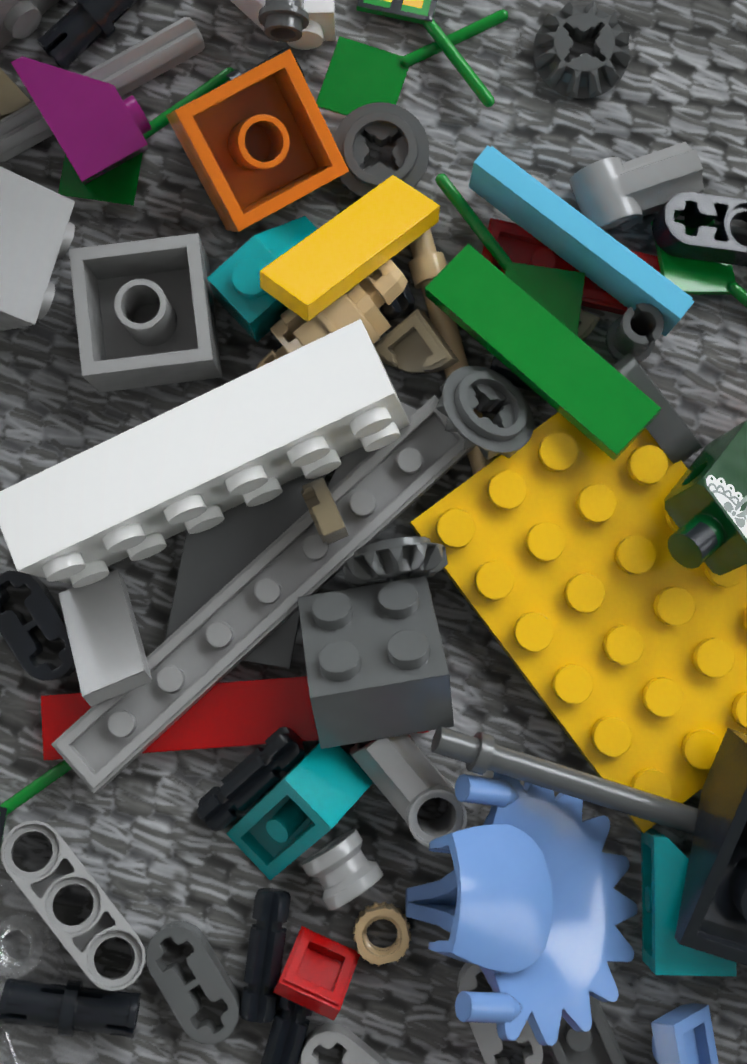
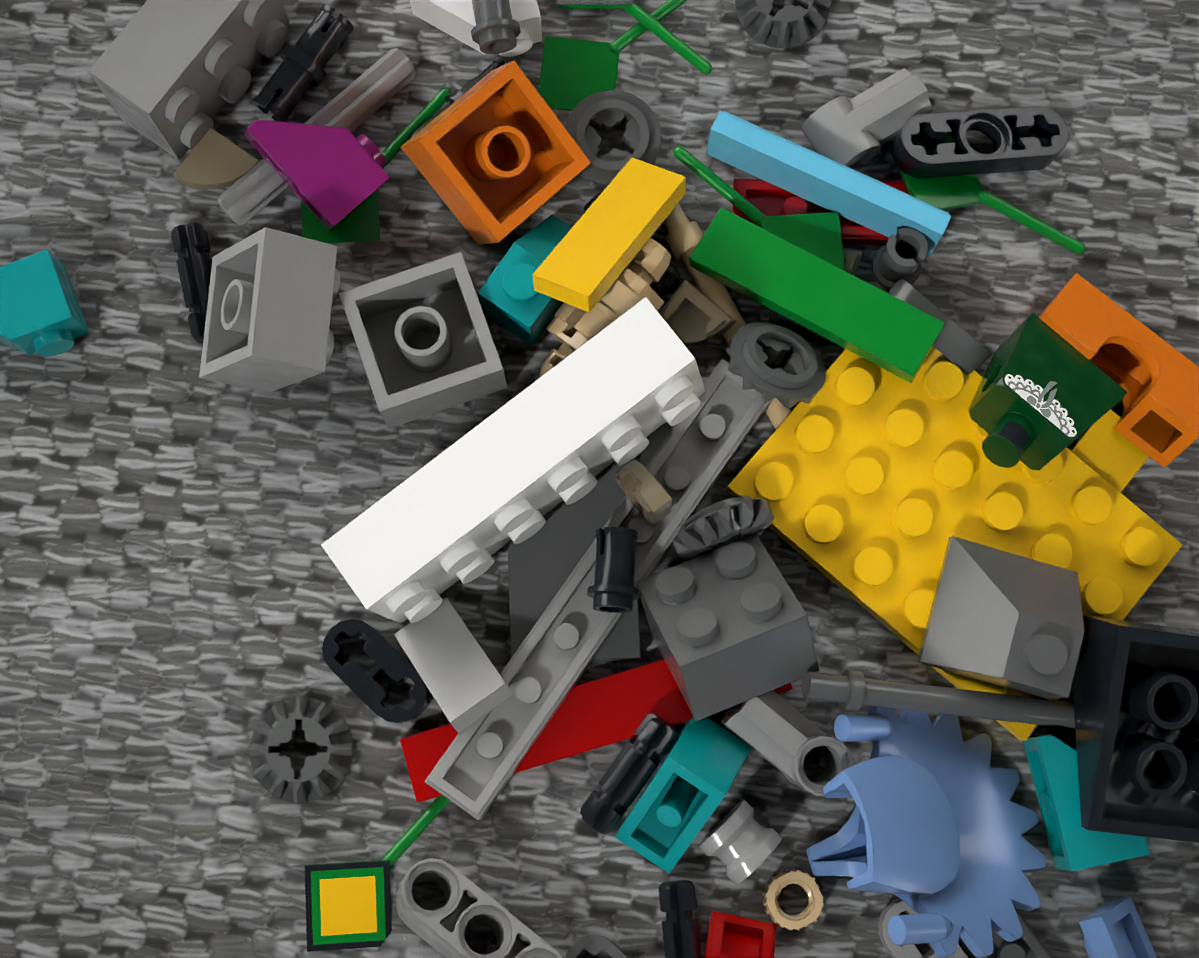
camera: 15 degrees left, 5 degrees down
(277, 582) = (614, 570): none -> black pin
(651, 715) = (1005, 620): none -> dark grey slope

